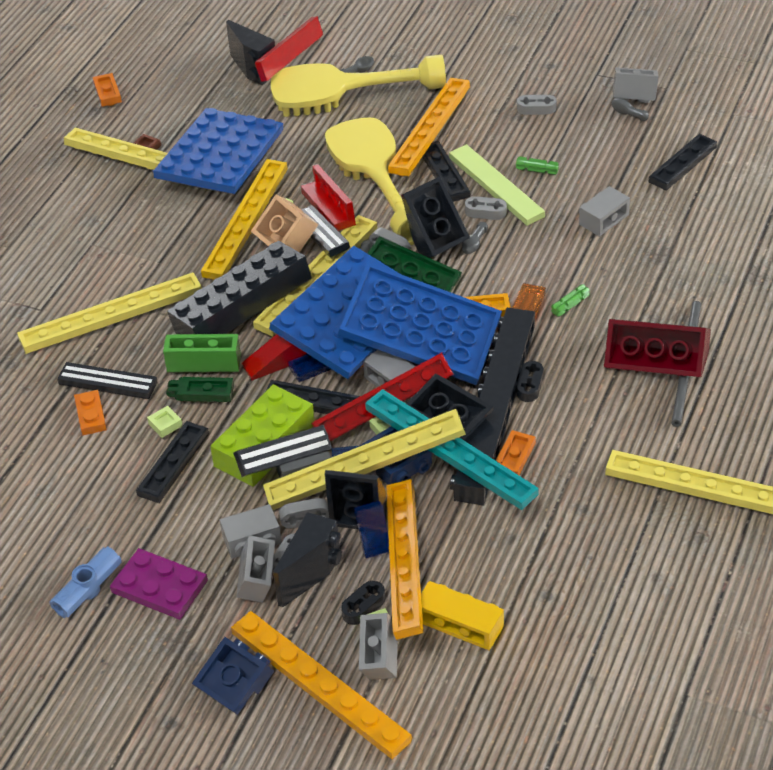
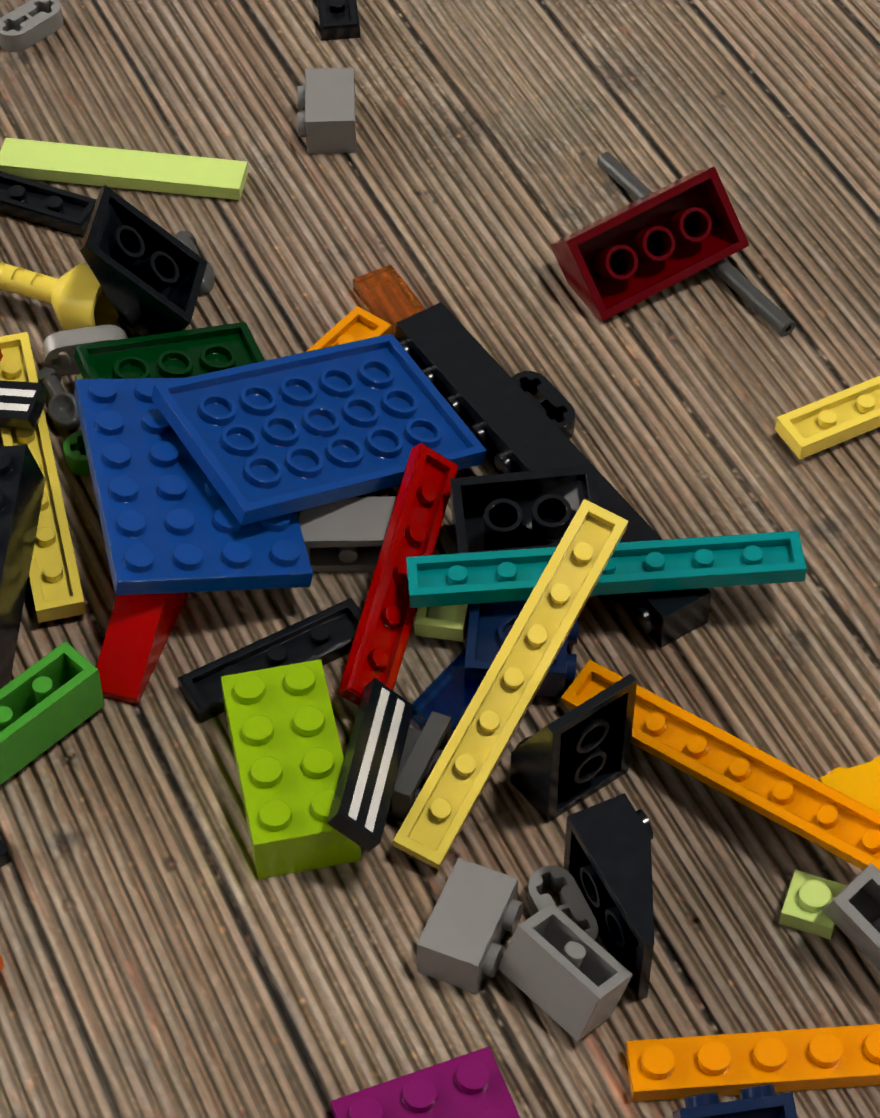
camera: 50 degrees left, 5 degrees up
(164, 421) = (98, 872): yellowish green plate -> none
(172, 462) = (190, 926): black tile -> none
(201, 389) = (88, 776): dark green hinge -> none
(293, 513) = (505, 830): light grey beam -> none
(306, 367) = (202, 619): clear blue tile -> none
(360, 600) = (763, 888): black beam -> none
(372, 529) = (649, 770): clear blue tile -> none
(485, 208) = (164, 204): light grey beam -> none
(516, 451) = (661, 508): orange plate -> none
(537, 165) = (146, 106): bright green axle -> none
(570, 300) = (443, 261): bright green axle -> none

